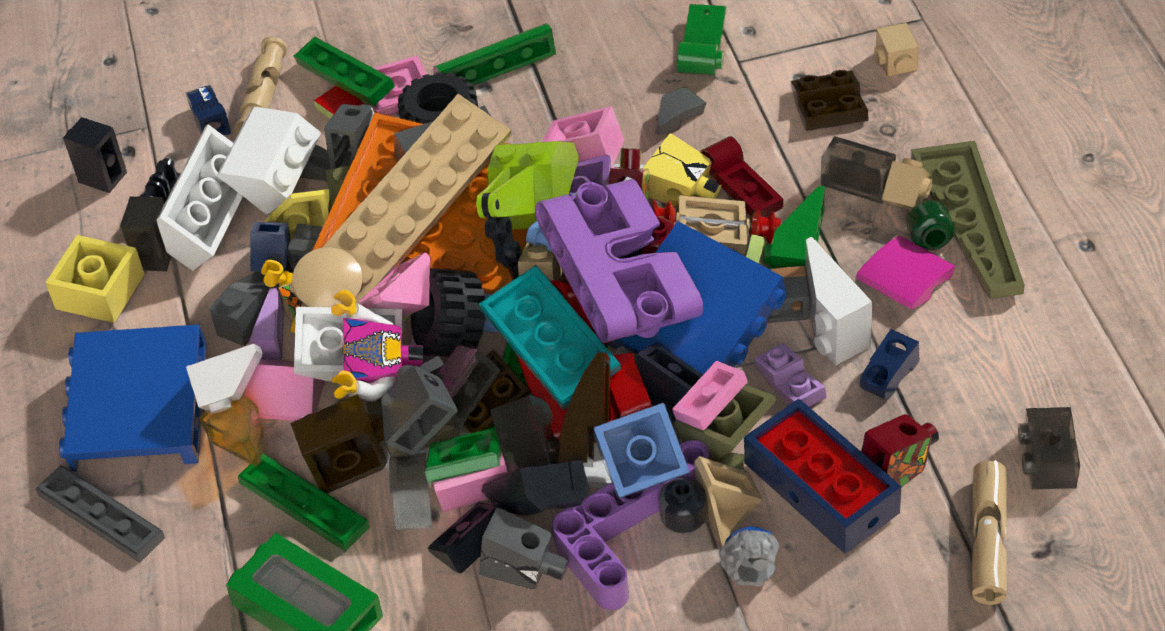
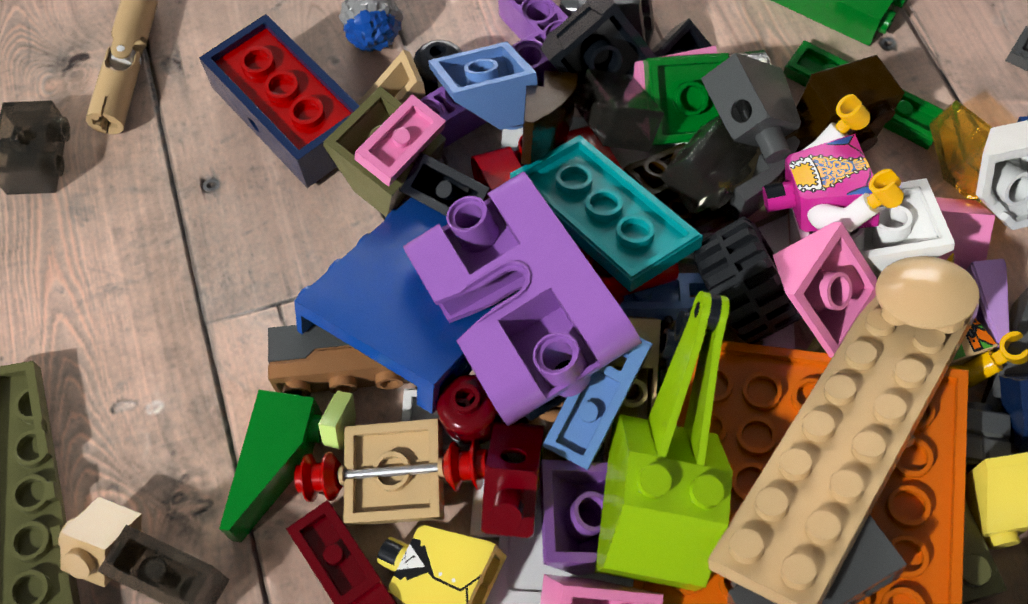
camera: 175 degrees right, 15 degrees up
(787, 376) = (306, 242): lavender slope -> none
(837, 307) = (237, 297): white slope -> none
(890, 364) = (184, 253): dark blue leg -> none
(900, 447) = (198, 124): dark red torso -> none
(905, 272) = (137, 404): dark pink slope -> none
(930, 225) = (83, 476): dark green head -> none

